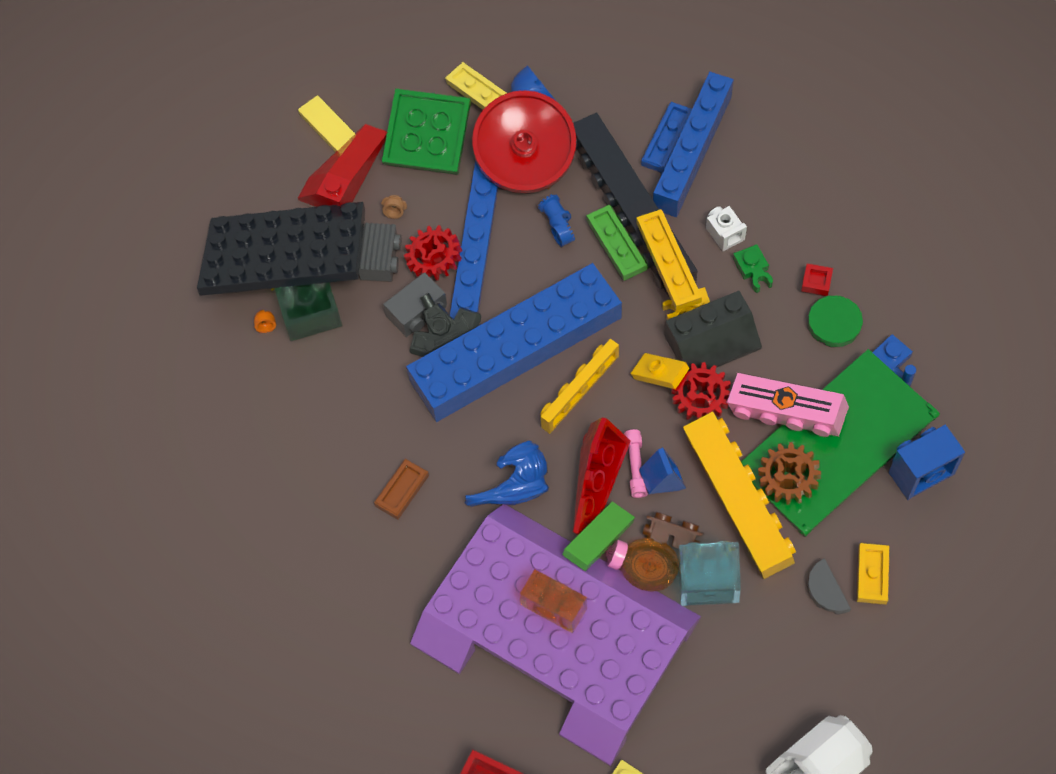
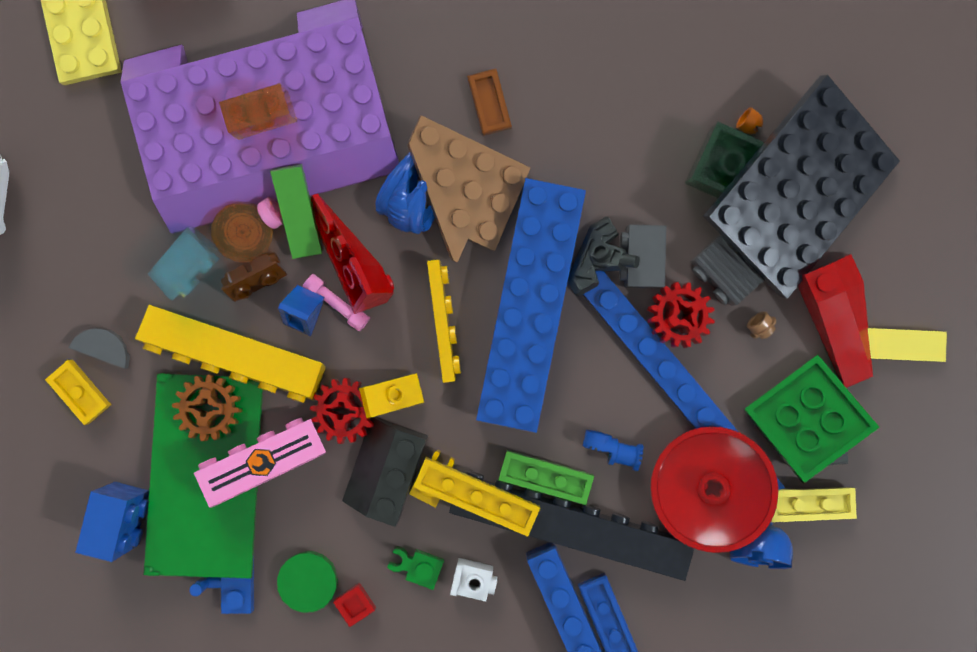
camera: 130 degrees right, 25 degrees up
(471, 443) = (467, 185): none -> medium nougat wing

